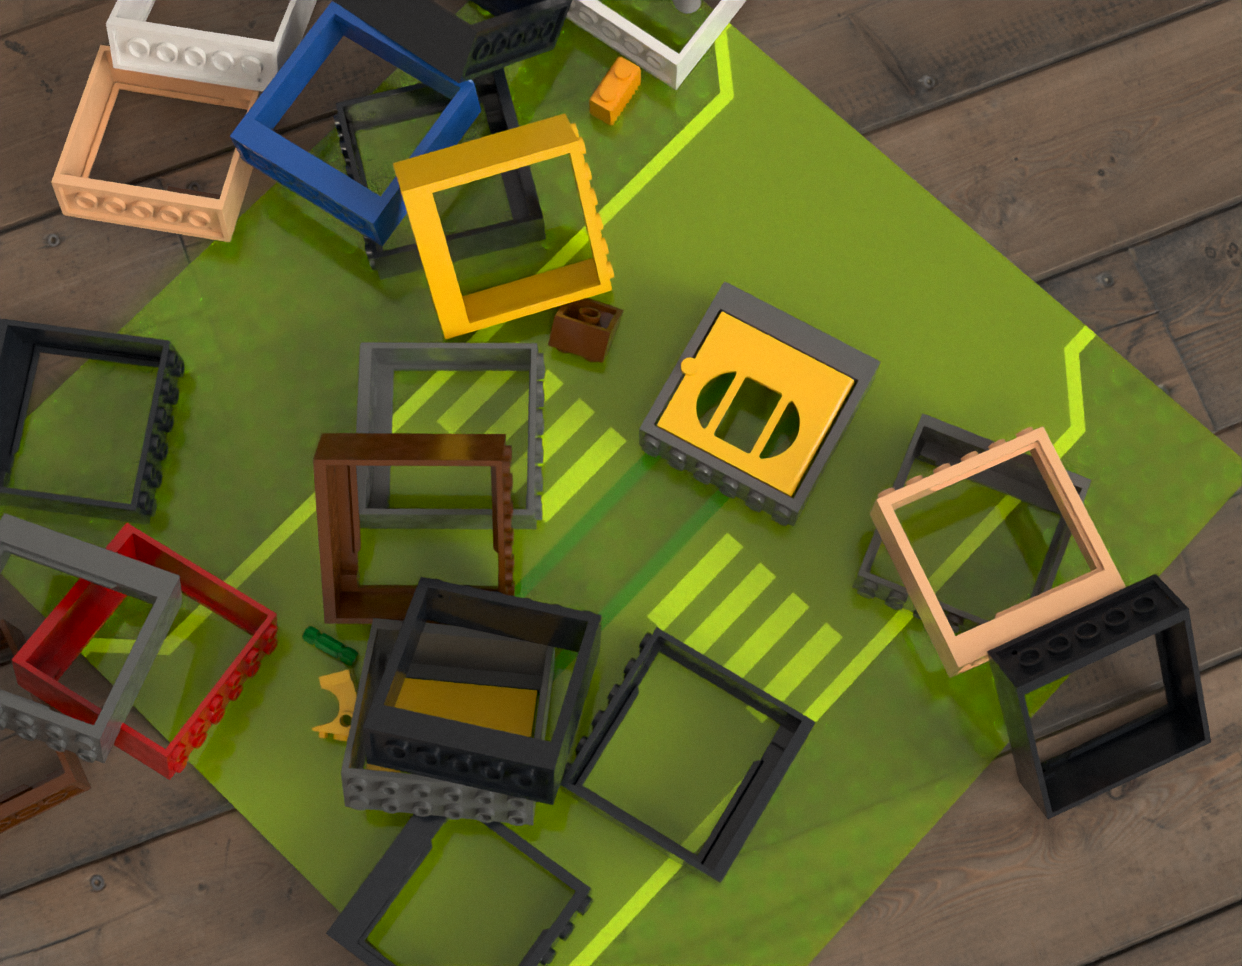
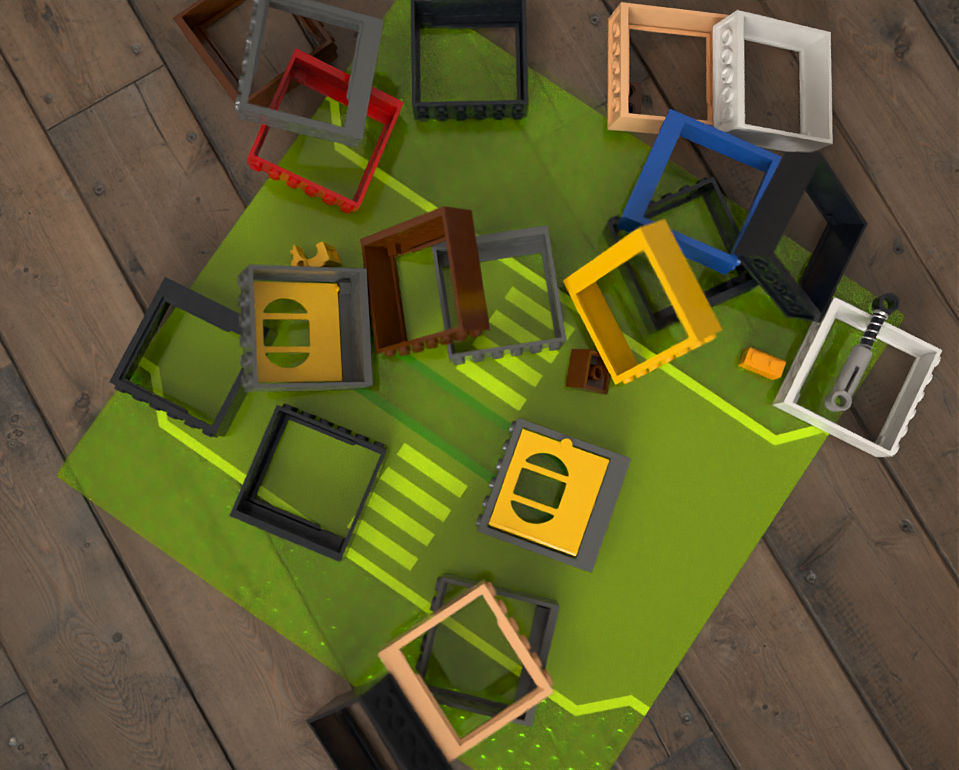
camera: 80 degrees right, 10 degrees up
(330, 645) = (353, 246): green axle -> none
(470, 752) = (268, 337): black door -> none

